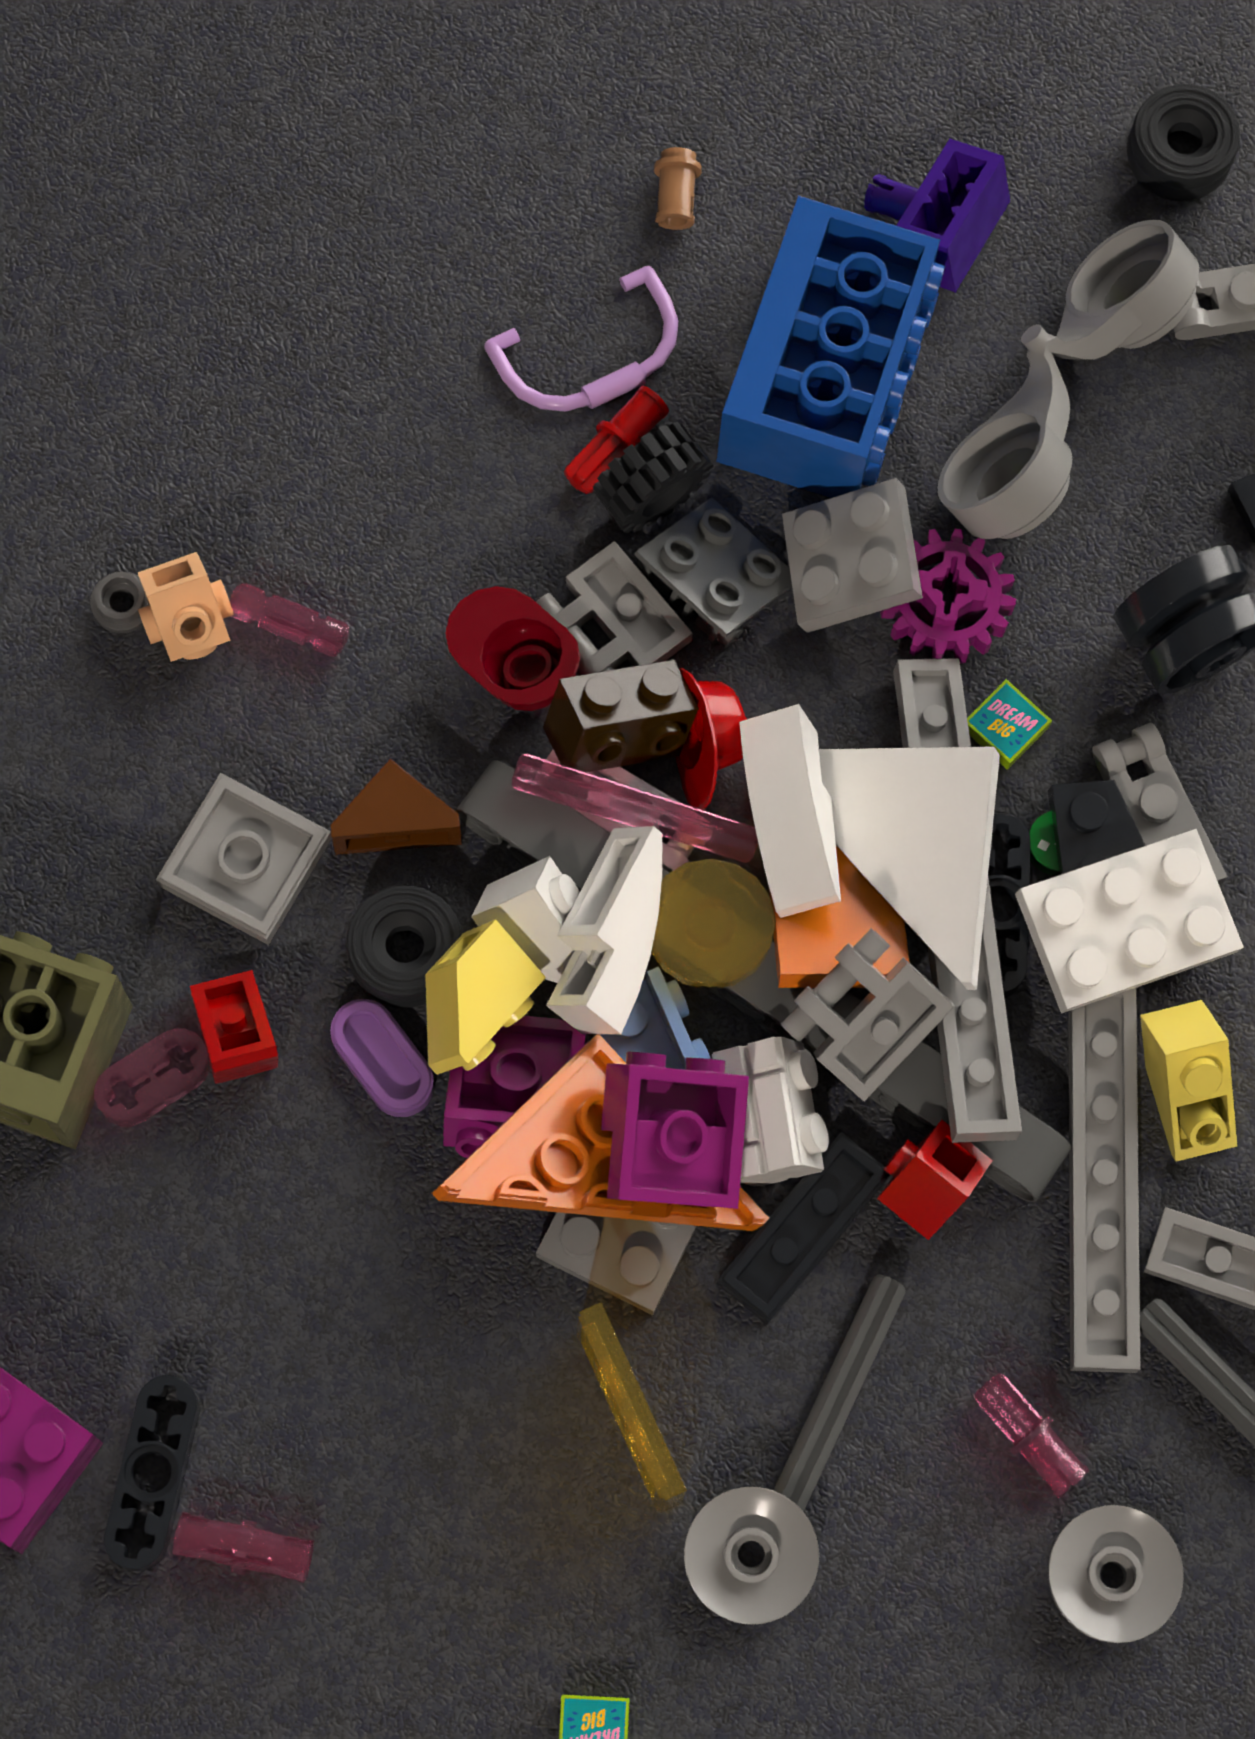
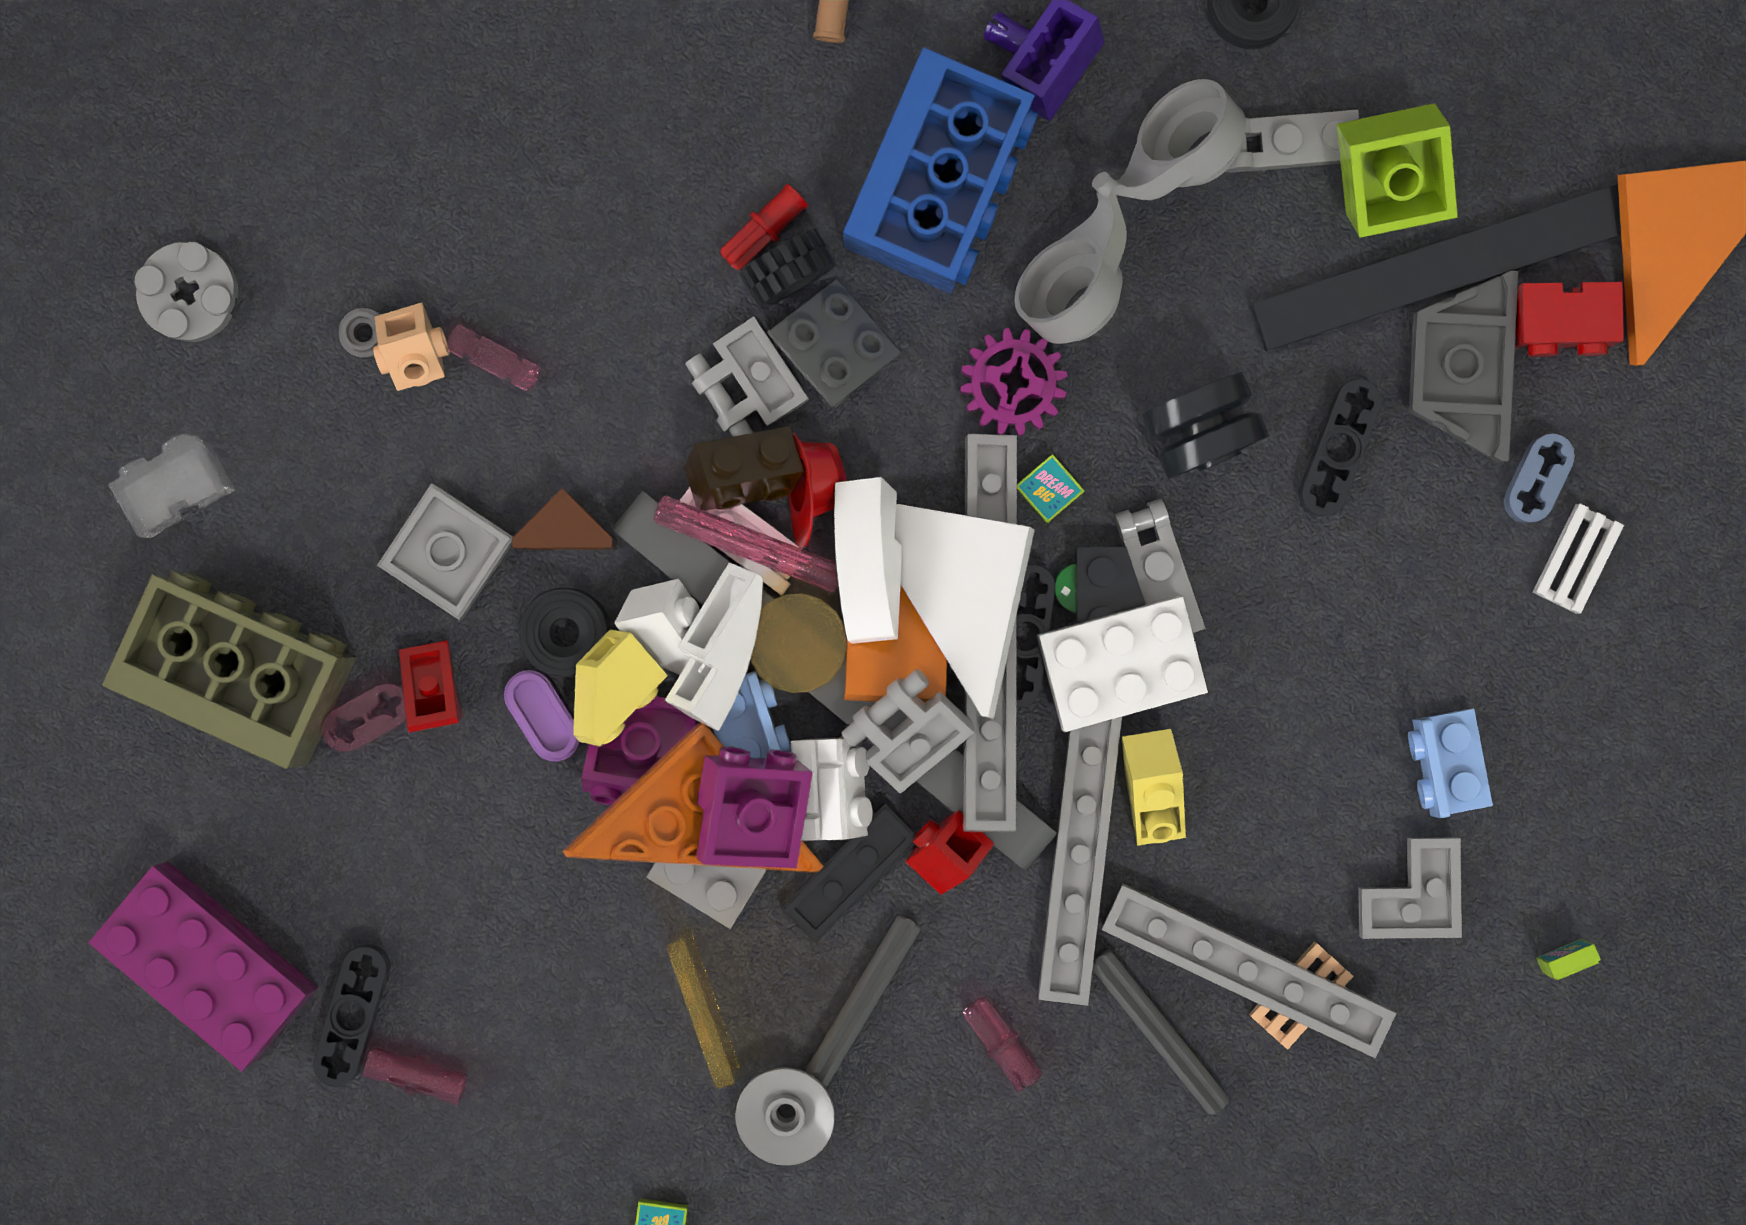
camera: 10 degrees right, 15 degrees up
(511, 647) = (663, 403): dark red piece -> none
(609, 386) = (765, 177): lavender piece -> none
(851, 555) = (940, 345): light grey plate -> none
(1149, 1569) = (1054, 1177): light grey dish -> none

